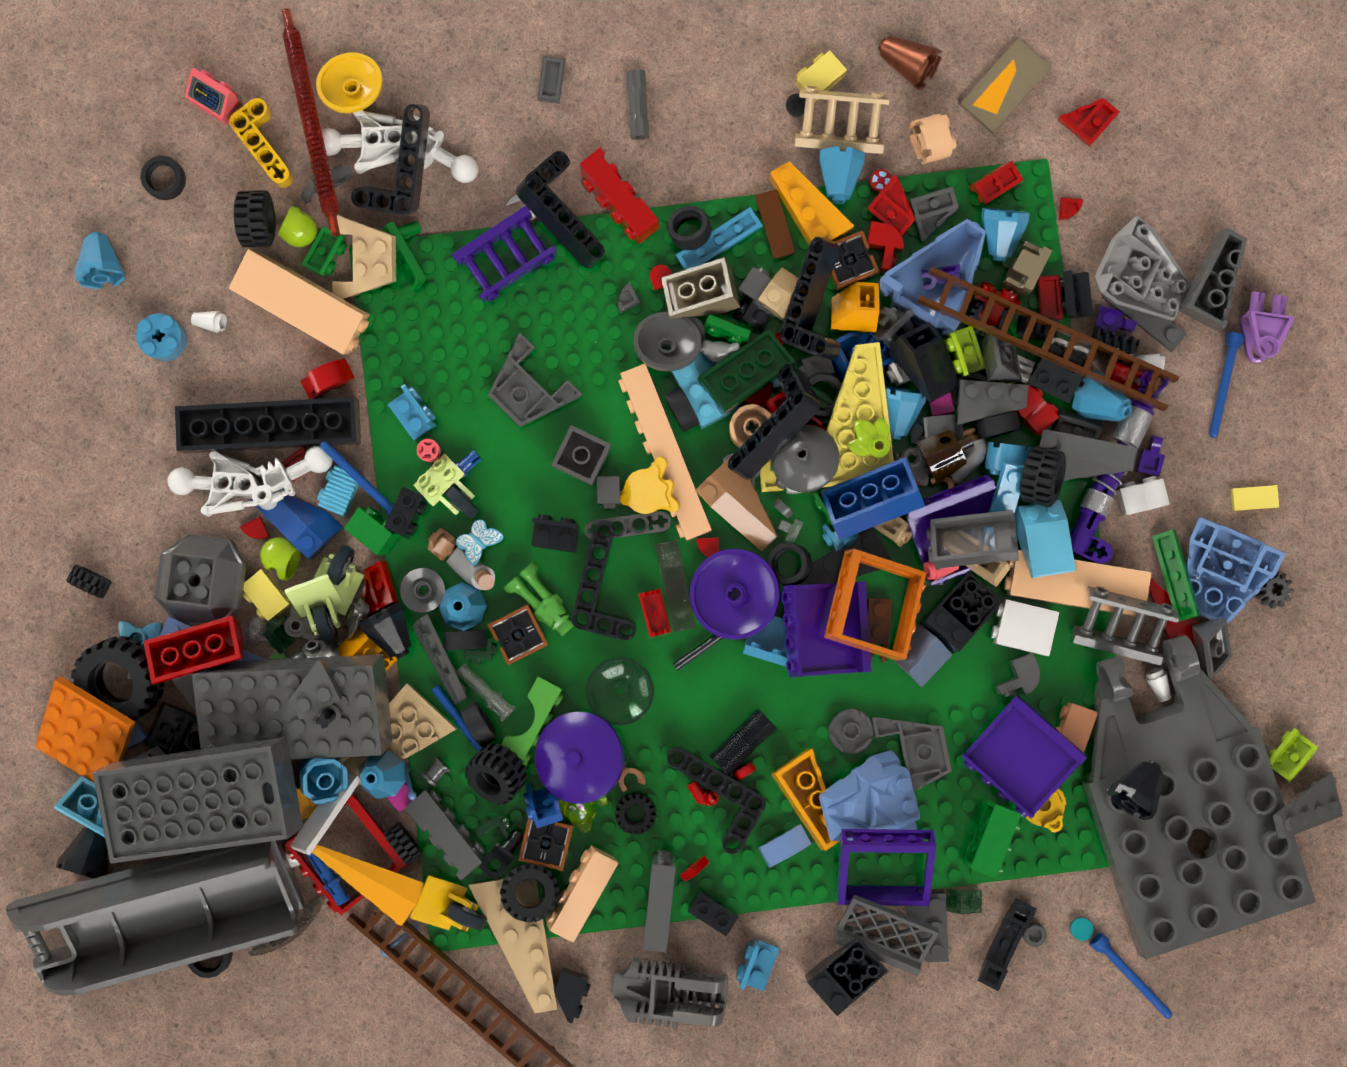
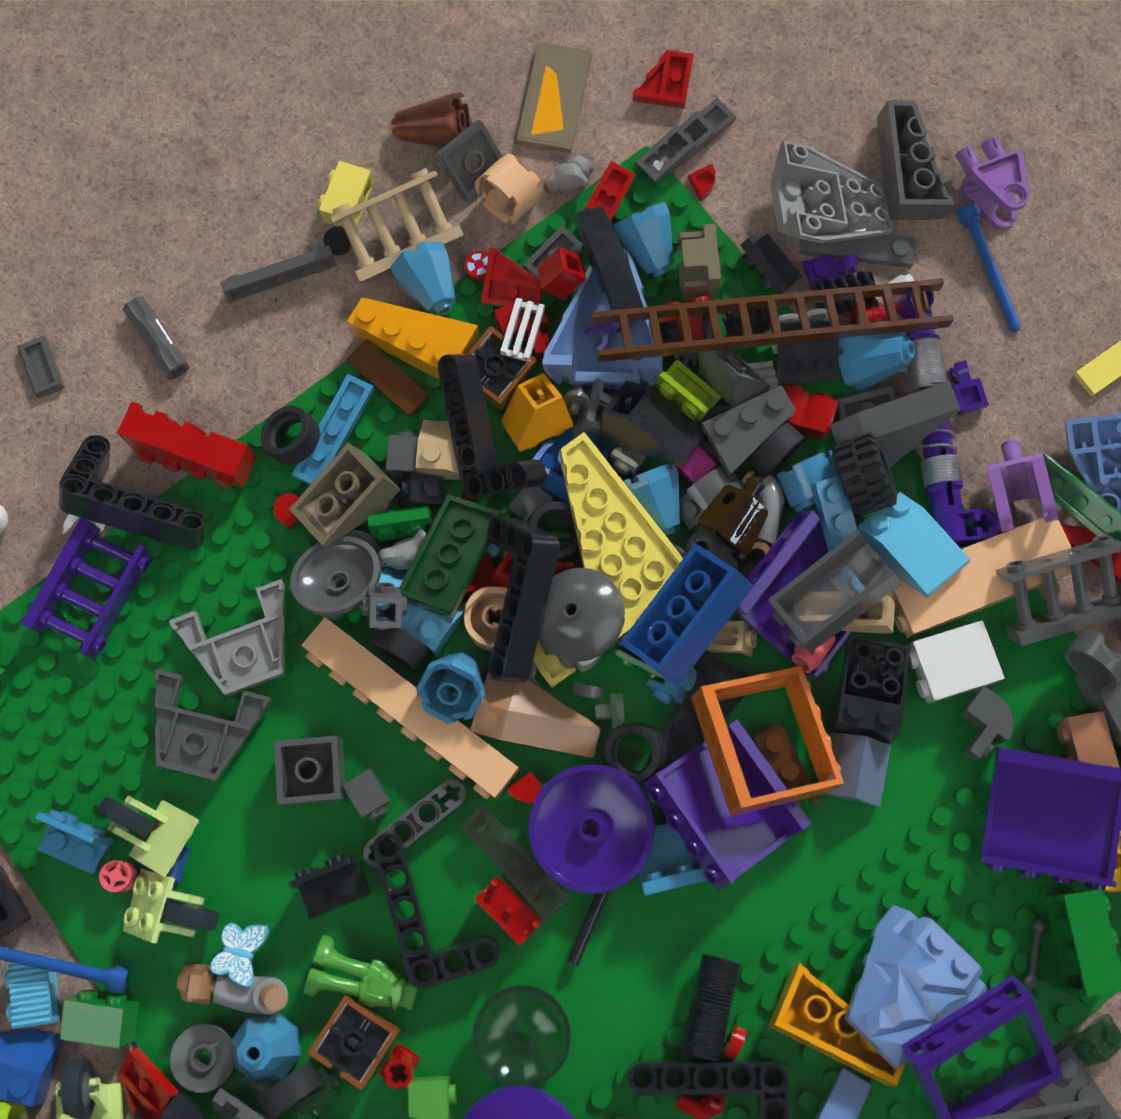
camera: 30 degrees left, 10 degrees down
(406, 513) = (129, 972): black bracket -> none
(468, 442) = (161, 837): none -> yellowish green plate
(537, 665) = (399, 1067): none -> red piece
(581, 356) = (245, 654): none -> light grey wing
(627, 298) = (264, 557): dark grey tile -> none
(649, 491) = (416, 764): yellow tile -> none
(686, 381) = (384, 616): none -> dark grey brick
(699, 456) = (452, 687): none -> dark azure cone
(773, 112) = (277, 274): none -> dark grey plate
(851, 731) = (830, 911): dark grey tile -> none
(868, 436) = (637, 545): lime plate -> none
(895, 233) = (528, 307): none -> white tile
(919, 100) = (468, 158): none -> dark grey tile
(922, 748) = (927, 880): dark grey wing -> none
(930, 222) = (561, 273): none -> red brick
(946, 843) = (1030, 979): none -> dark grey hinge
(966, 233) = (608, 259): none -> black slope
(980, 151) = (570, 175): none -> light grey animal
(1050, 296) = (741, 279): red tile -> none
(1075, 172) = (685, 141): none -> dark grey slope
(1142, 497) = (984, 438): white brick -> none
(1143, 537) = (1018, 480): none -> medium lavender piece

